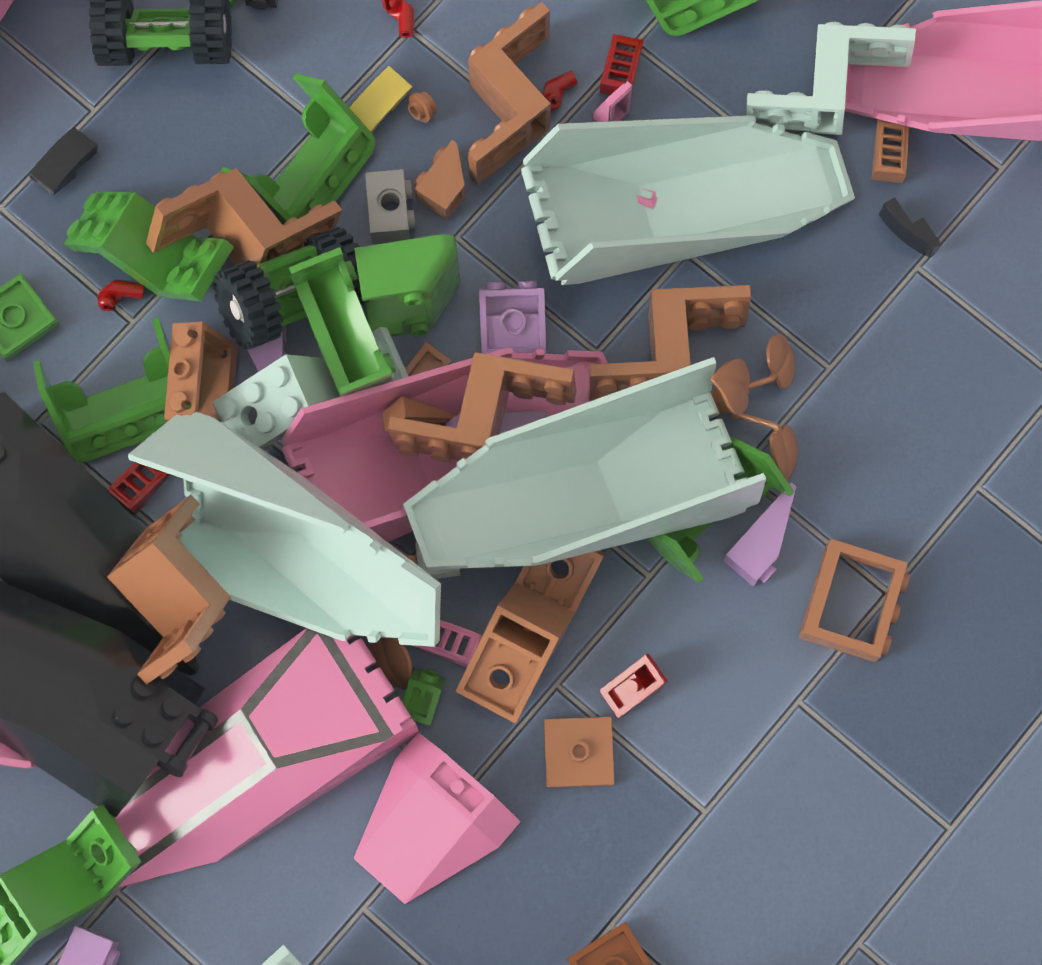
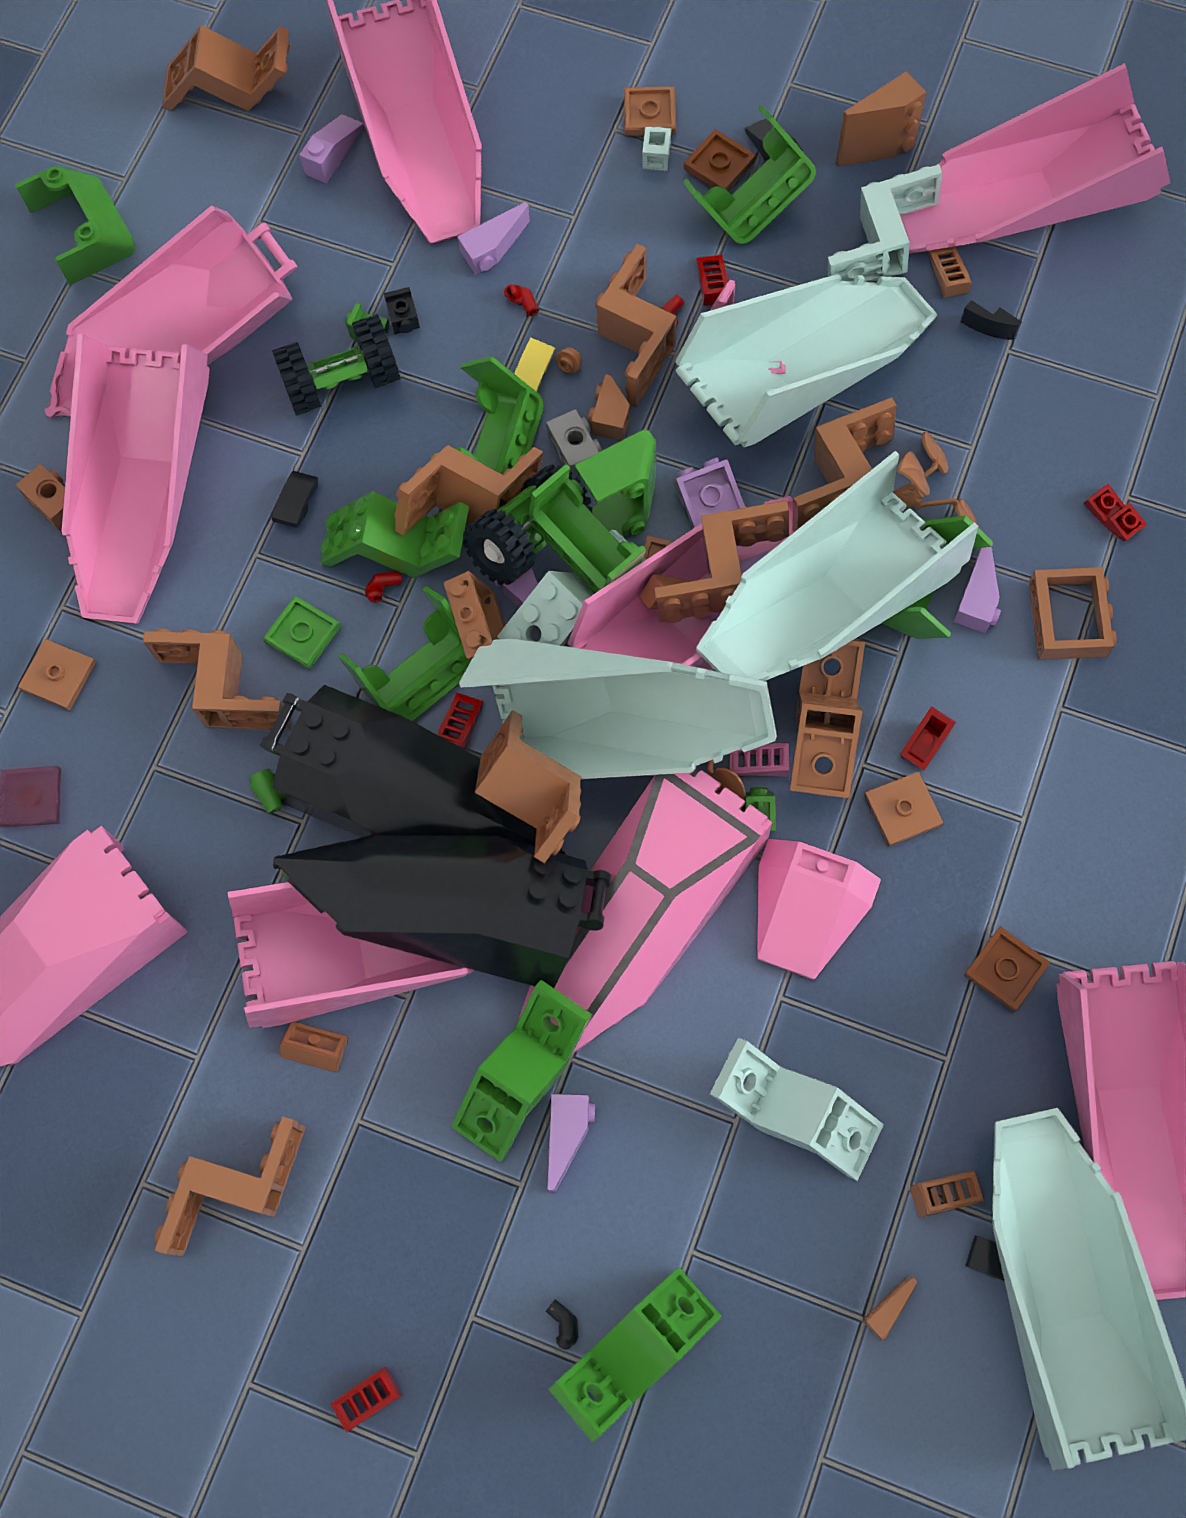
camera: 15 degrees left, 5 degrees down
(953, 502) = (1114, 514): none -> red slope

